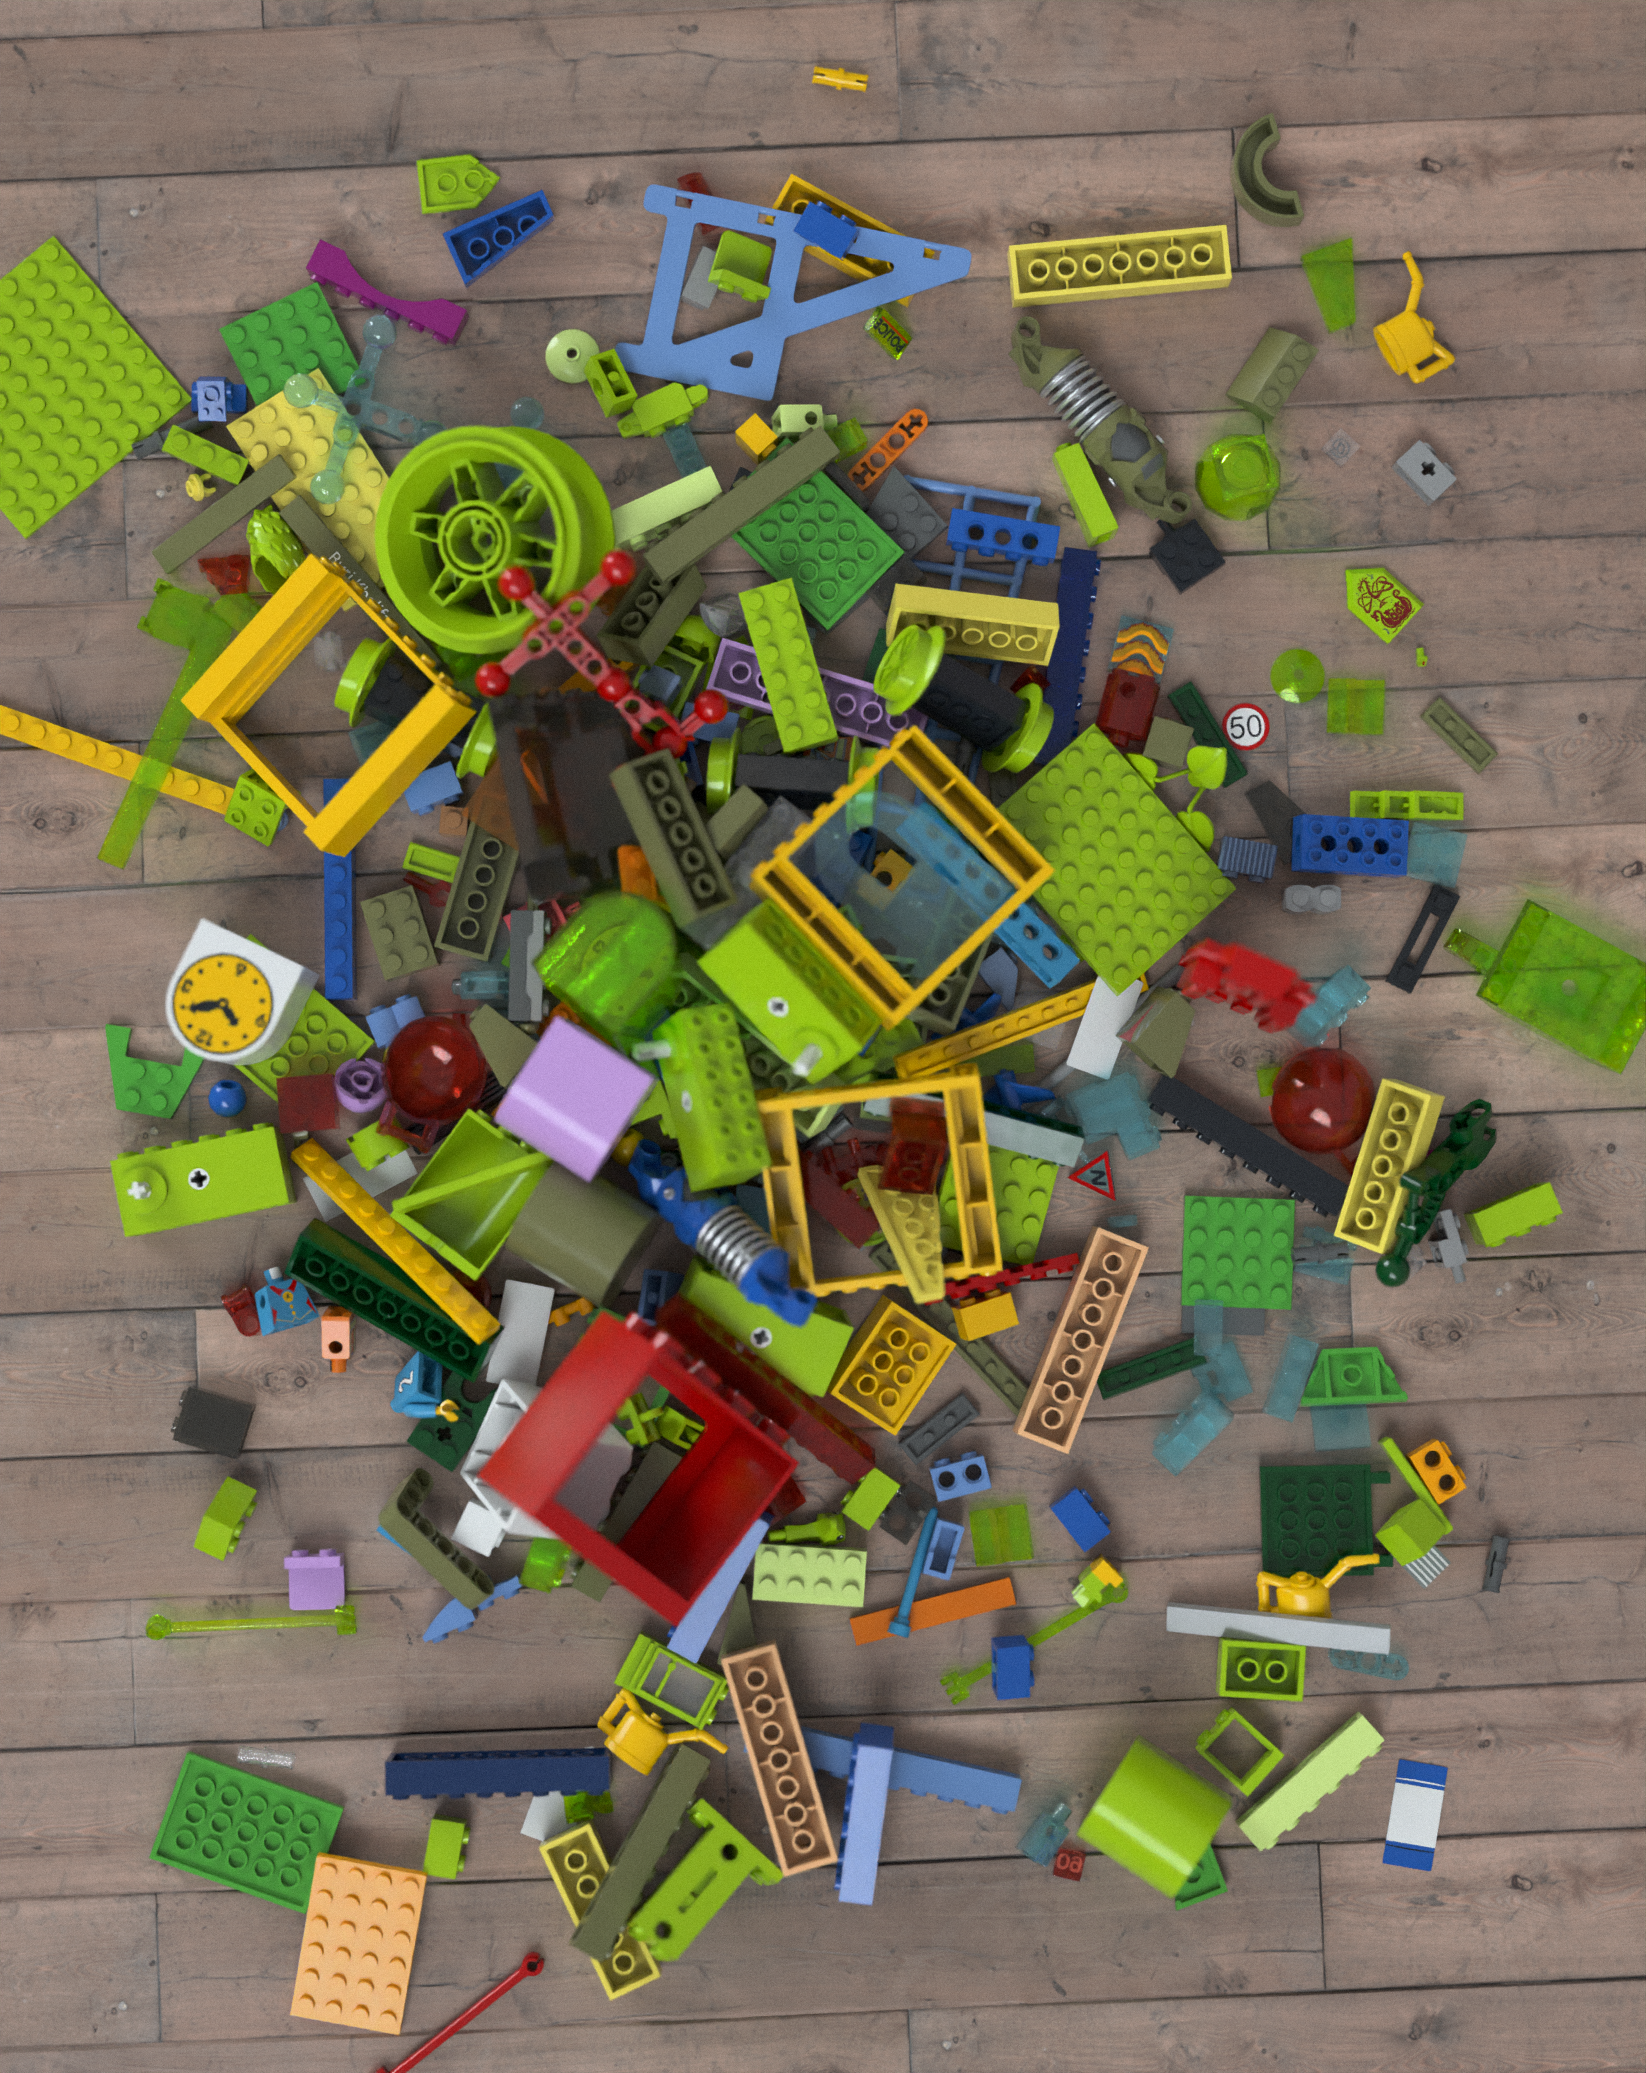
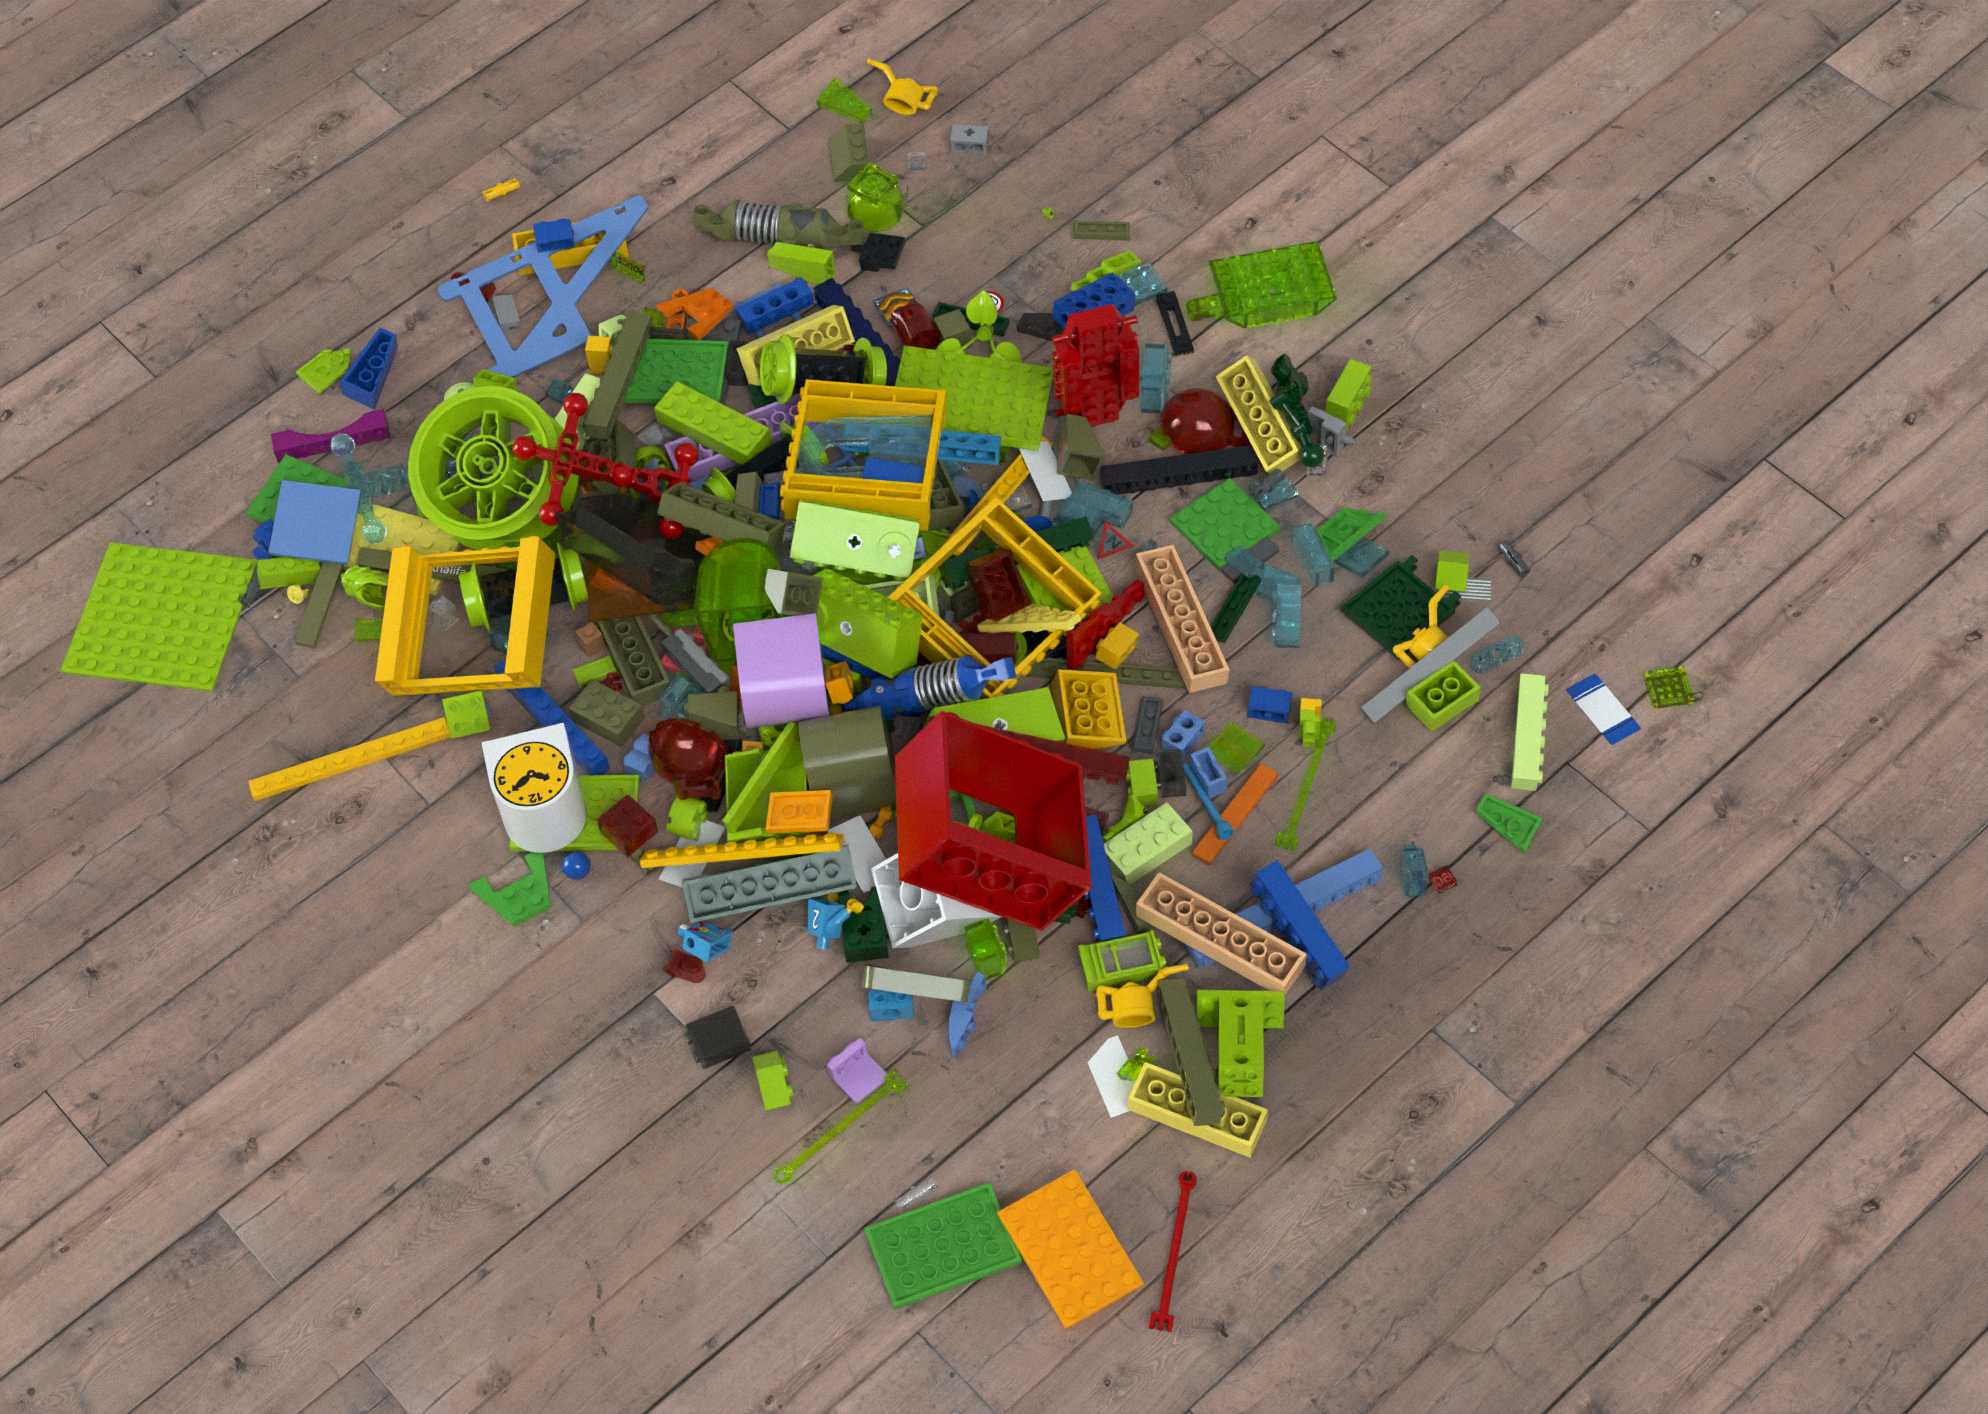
camera: 30 degrees left, 30 degrees down
(162, 746) = (382, 722): clear neon green plate -> none
(165, 1187) = (599, 912): lime piece -> none
(175, 615) = (336, 661): clear neon green panel -> none
(228, 574) = (351, 615): clear red wing -> none
(266, 427) = (314, 522): none -> medium blue tile
(340, 1326) = (753, 931): orange torso -> none
(359, 1085) = (654, 797): lavender cylinder -> none
(434, 788) = (561, 634): medium blue brick -> none
(445, 1846) = (1071, 1152): lime brick -> none
(476, 1261) = (799, 811): none -> light orange plate
(479, 1529) = (931, 960): white head -> none
(498, 1772) = (1064, 1082): dark blue brick -> none
(642, 1139) = (839, 683): none -> light orange brick
(649, 1033) = (793, 592): none -> olive slope
(662, 409) = (538, 378): lime hinge -> none
(741, 266) = (522, 292): lime bracket -> none
(752, 845) = (770, 500): none -> blue tile
(902, 939) = (892, 471): none -> blue brick
(925, 471) = (704, 306): none -> orange wing
(1011, 1667) = (1306, 800): blue brick -> none
(1119, 266) = (725, 162): light yellow brick -> none
(1155, 1817) = (1461, 799): lime brick -> none
(1246, 859) = (1040, 351): sand blue brick -> none
(1250, 185) = (766, 88): olive brick -> none
(1258, 1770) = (1474, 731): lime window -> none
(1286, 684) = (992, 265): clear neon green dish -> none
(1356, 706) = (1036, 254): clear neon green slope -> none
(1380, 601) = (1002, 206): lime tile -> none
(1413, 1480) = (1421, 551): lime tile -> none
(1431, 1474) = (1432, 537): light orange brick -> none
(1503, 1851) = (1668, 687): none -> clear neon green tile

